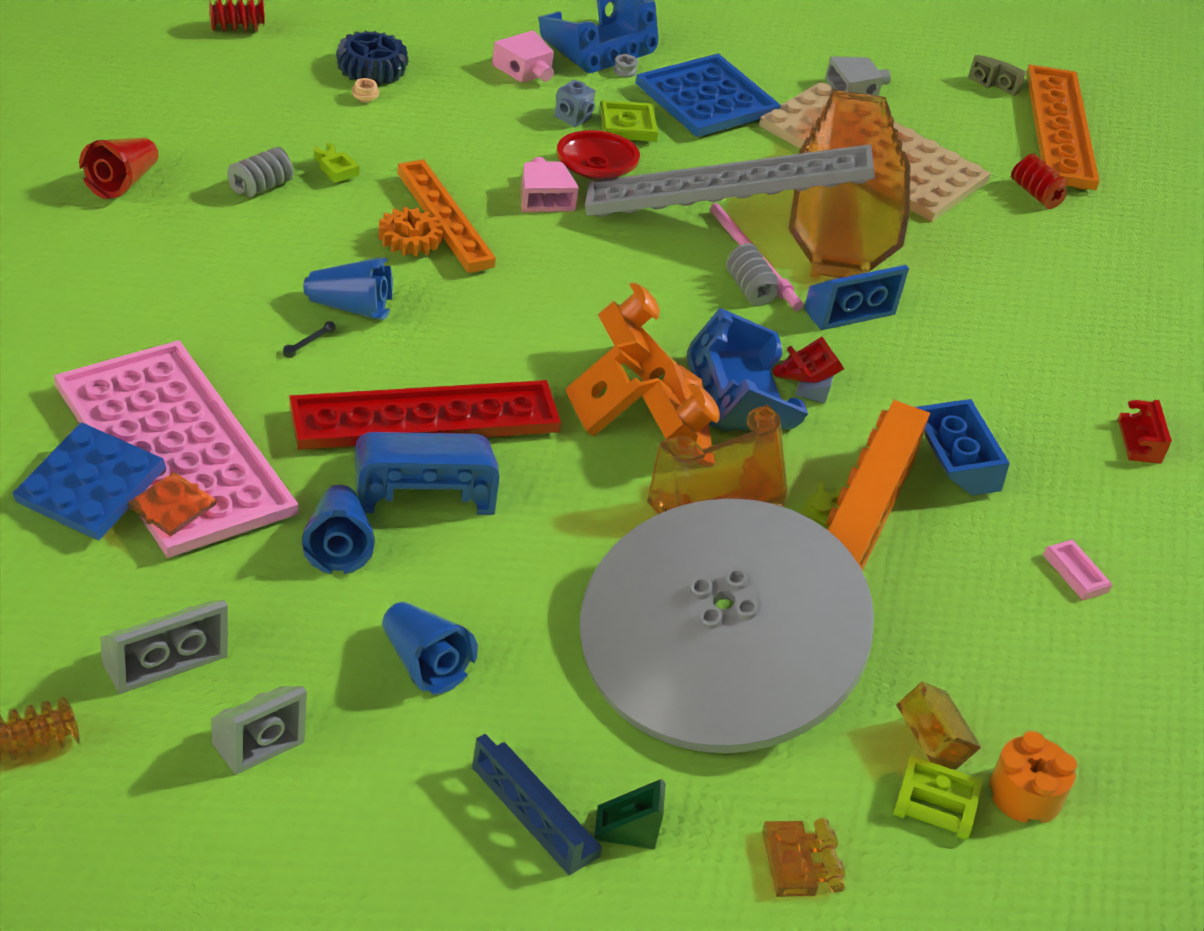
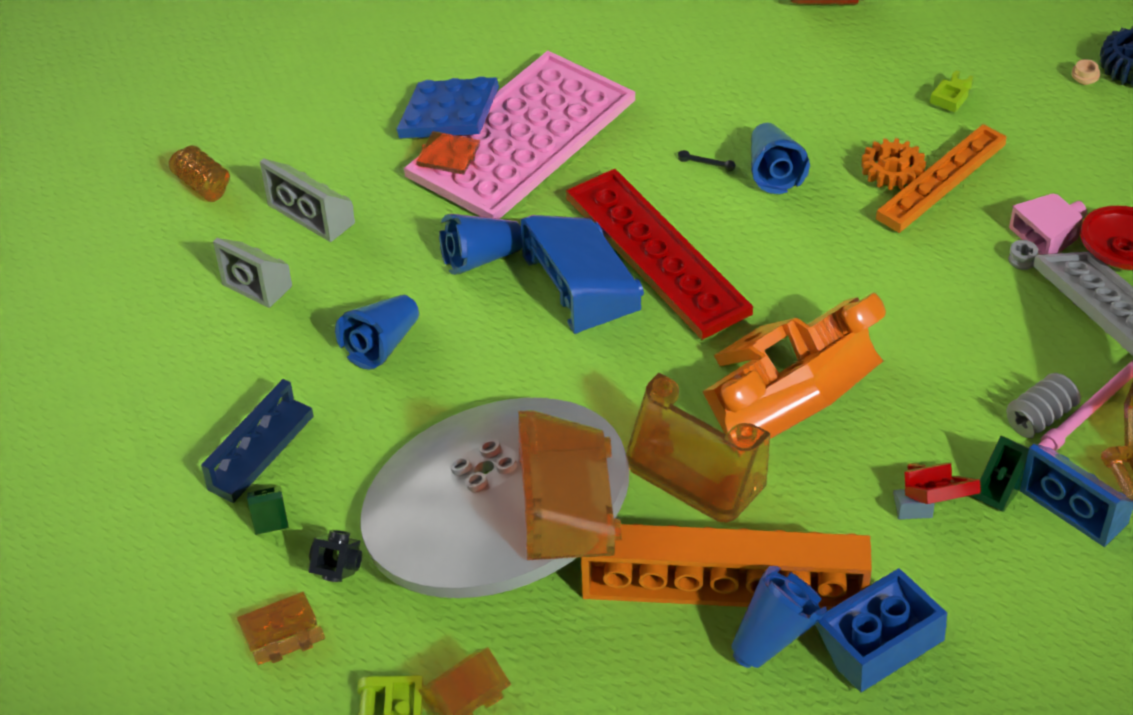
camera: 80 degrees right, 5 degrees up
(260, 172) = (890, 57): light grey piece -> none
(566, 216) = (1022, 247): none -> light grey bush
(735, 366) = (868, 438): blue windscreen -> none
(740, 775) = (325, 560): none -> black brick
(806, 530) = (565, 488): none -> clear orange windscreen
(815, 319) = (1003, 474): none -> dark green slope
(943, 496) = (775, 617): none -> blue cone

